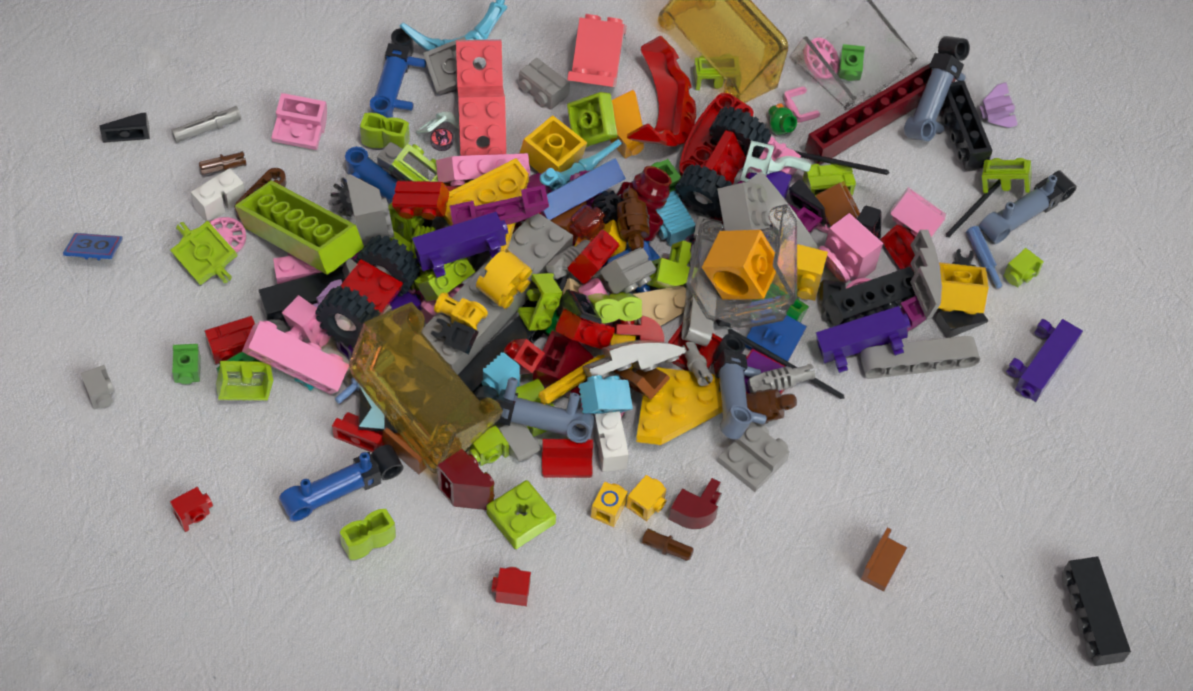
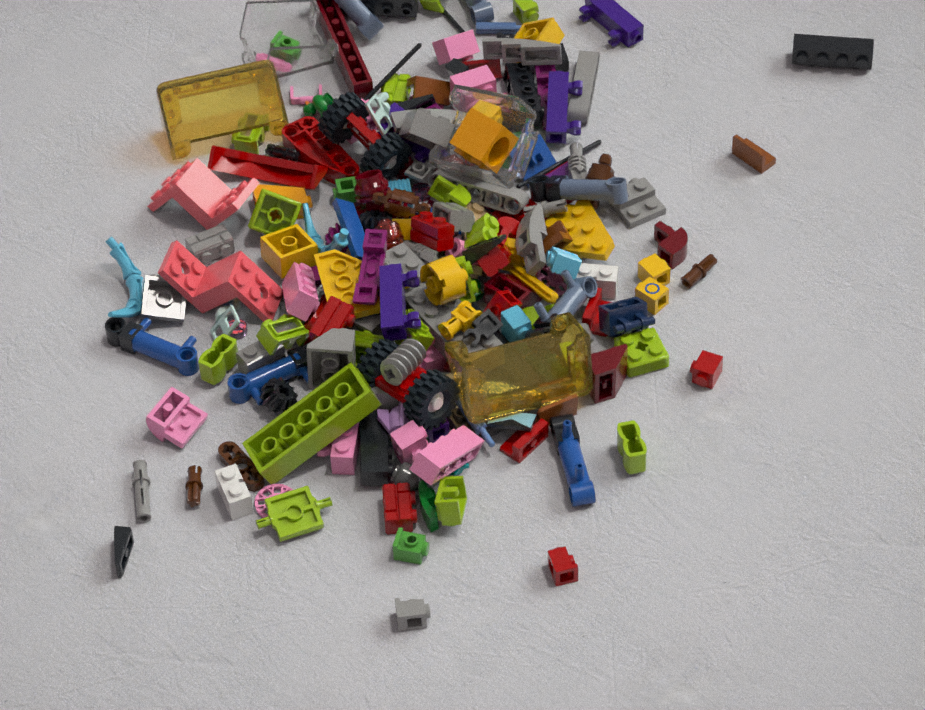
camera: 65 degrees left, 10 degrees down
(93, 246) = (250, 594): blue piece -> none
(373, 271) = (402, 361): none -> light grey piece
(556, 481) = (624, 317): none -> dark blue brick
(698, 105) = (282, 152): none -> black axle

